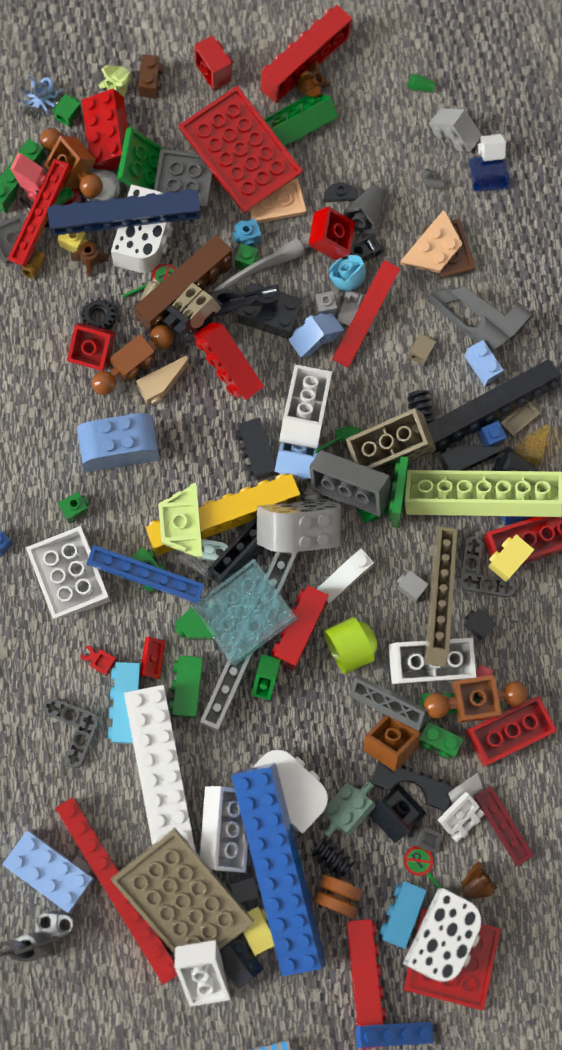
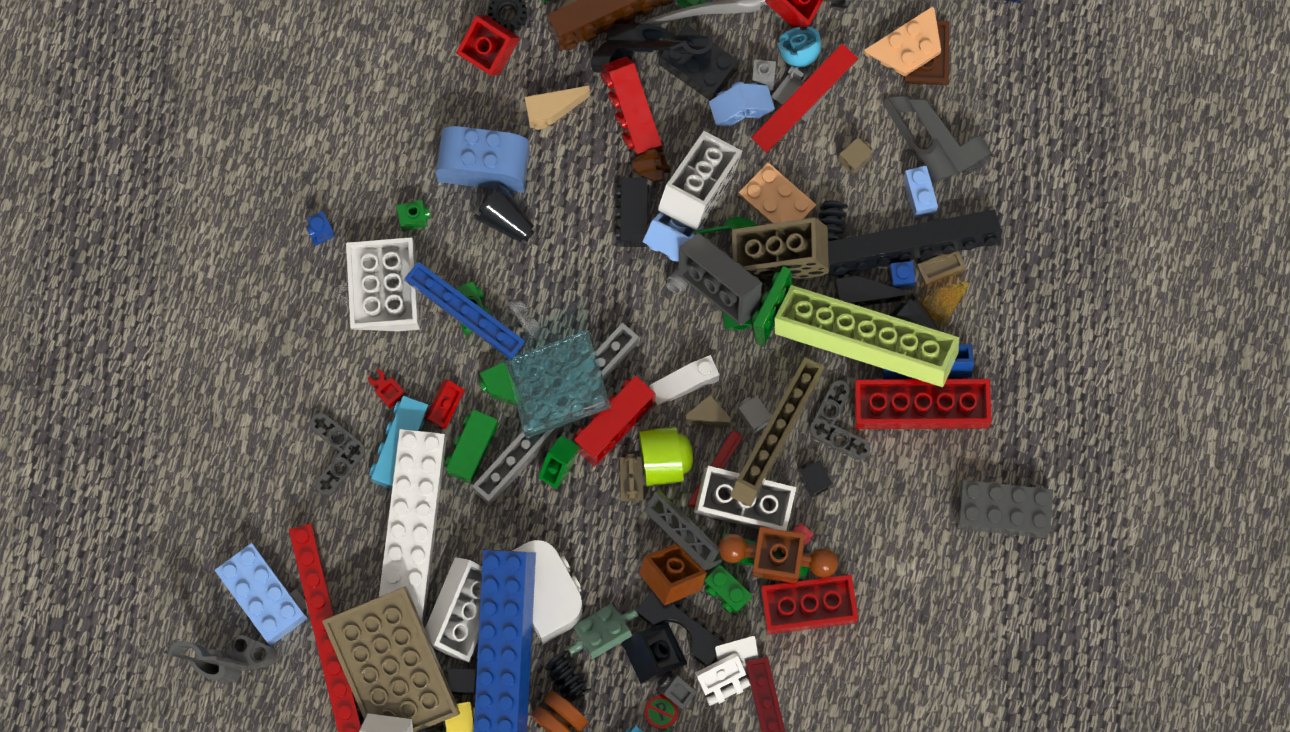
camera: 25 degrees right, 0 degrees up
(131, 359) = (527, 72): dark orange brick -> none
(151, 483) = (505, 215): none -> black cone
(181, 522) = (520, 265): yellowish green wing -> none
(190, 310) = (607, 37): dark tan hips -> none
(211, 548) = (546, 307): light aqua plate -> none
(233, 509) = (571, 272): yellow brick -> none
(237, 554) = (583, 315): black brick -> none
(259, 405) = (651, 164): none -> reddish brown brick
(299, 526) = (648, 309): light grey brick -> none
(328, 671) = (631, 478): none -> dark tan hinge
(367, 247) = (834, 23): black piece -> none
(368, 402) = (776, 197): none -> light nougat plate
(375, 597) = (709, 414): none -> dark tan slope
(396, 637) = (721, 459): none -> red axle
(510, 558) = (870, 415): light yellow brick -> none

